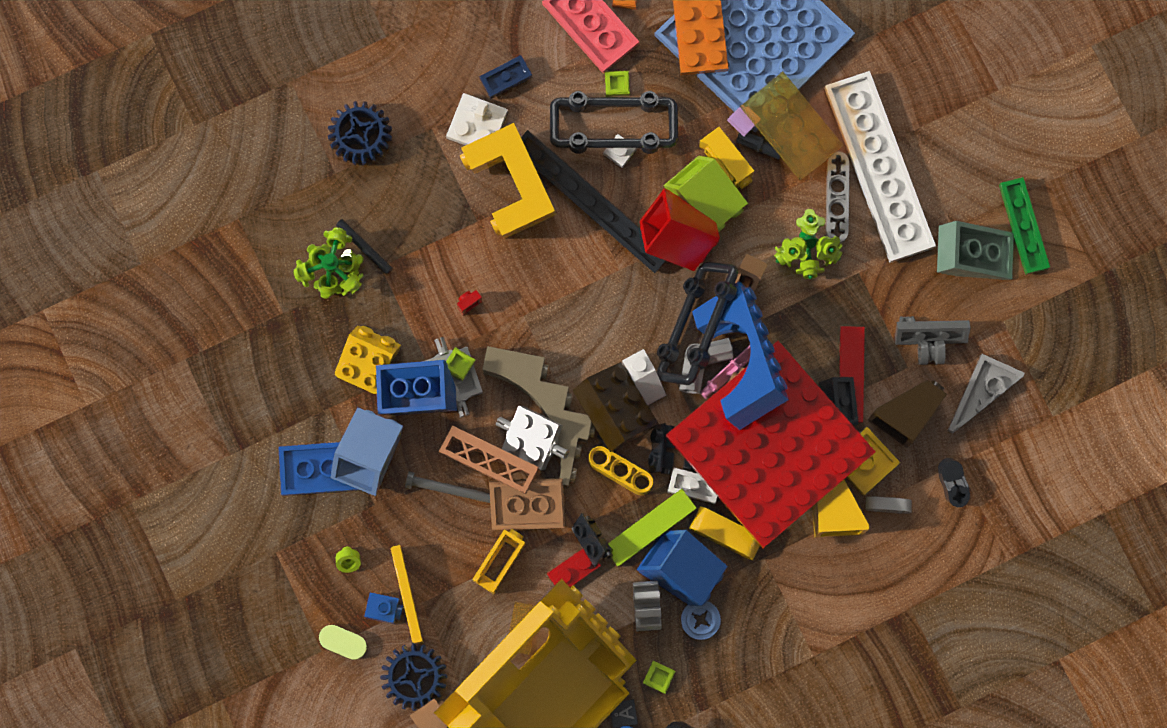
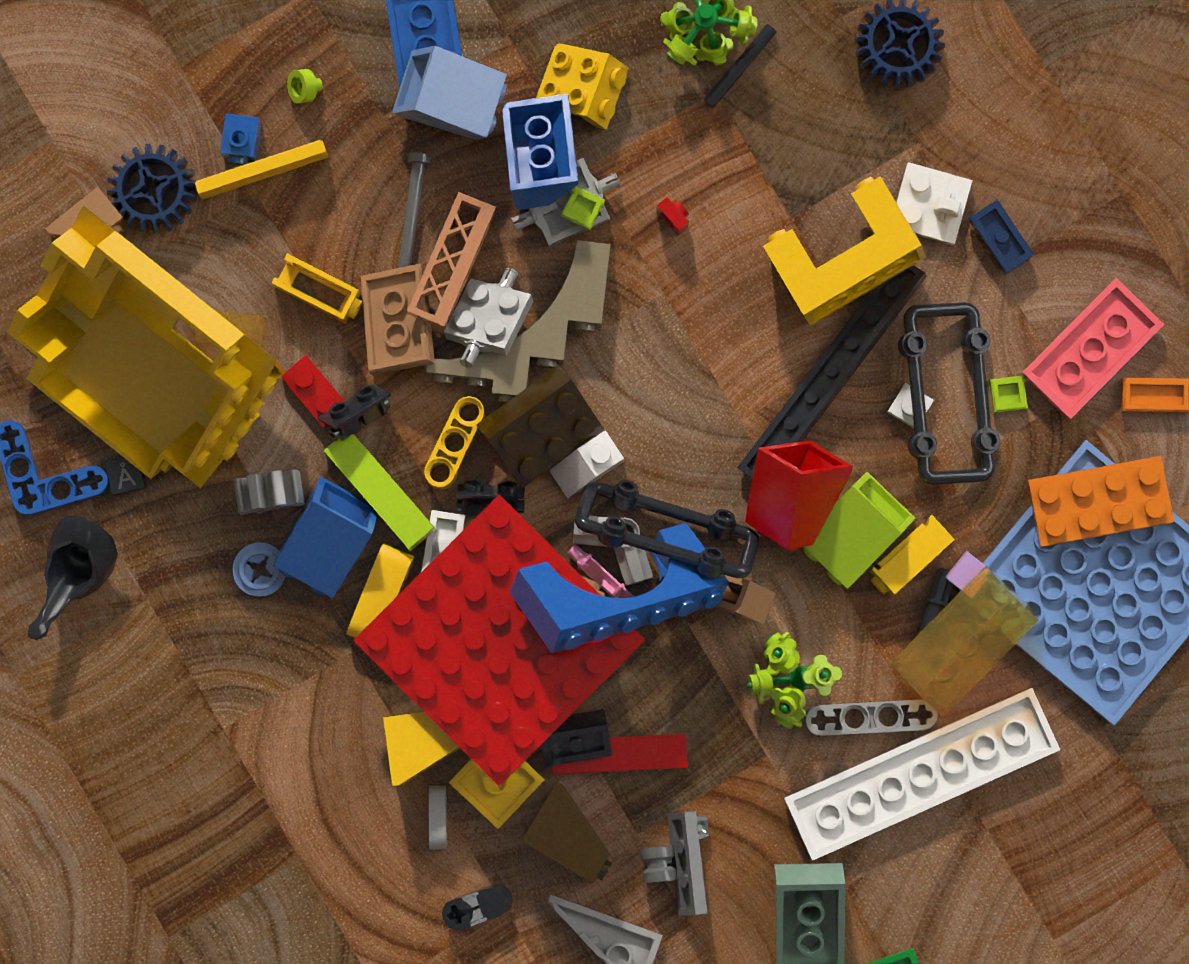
camera: 90 degrees right, 5 degrees up
(343, 642) = (193, 91): yellowish green tile -> none
(659, 677) = (178, 519): lime tile -> none

